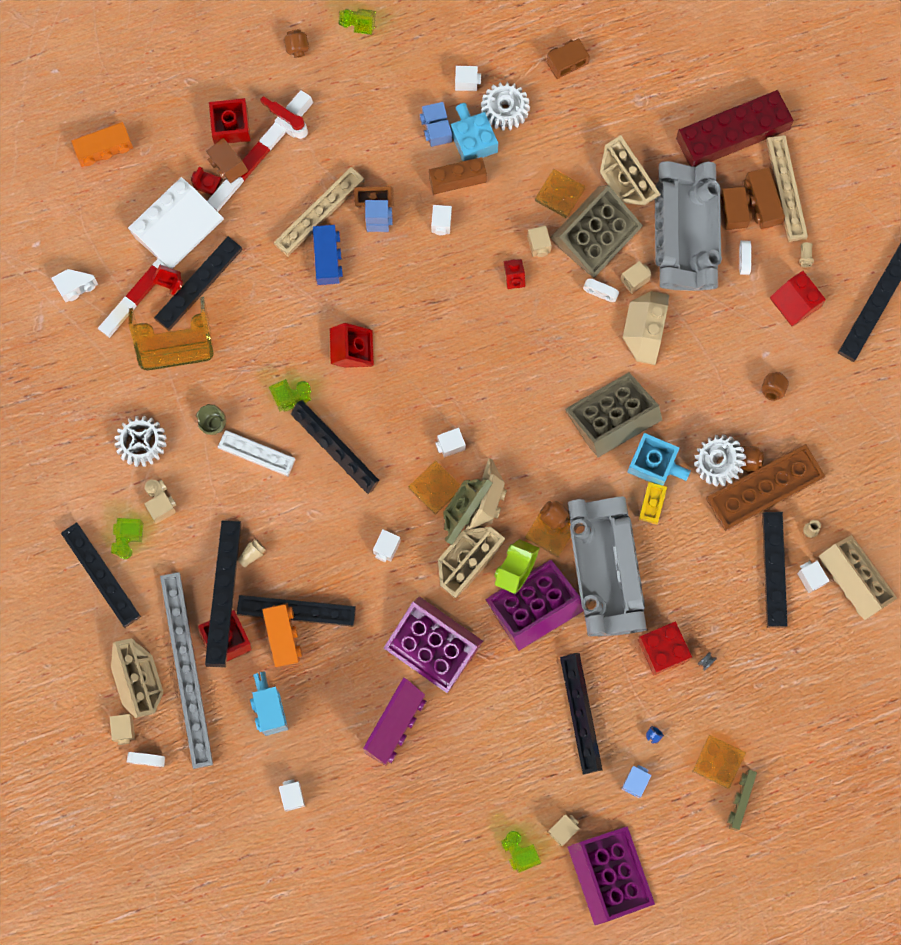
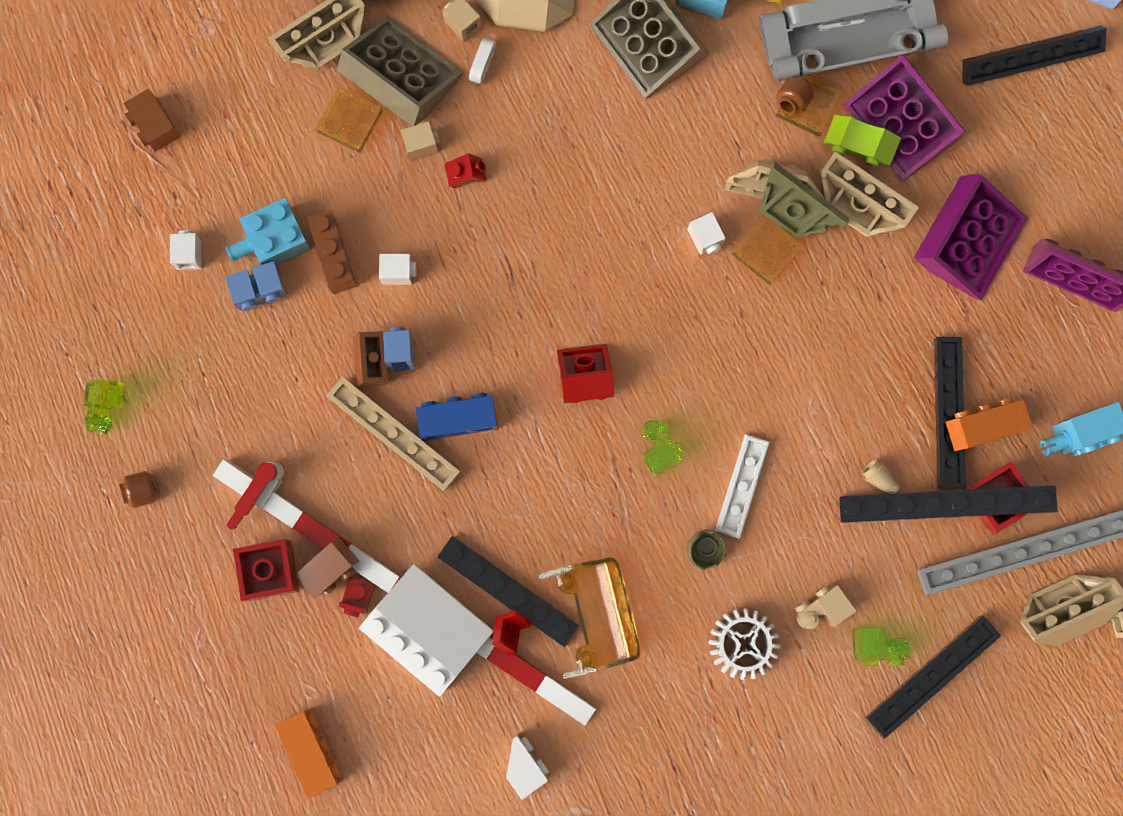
camera: 95 degrees left, 5 degrees up
(334, 447) = (726, 382): black plate -> none
(386, 546) = (852, 304): white brick -> none
(505, 95) = (219, 183): white gear -> none

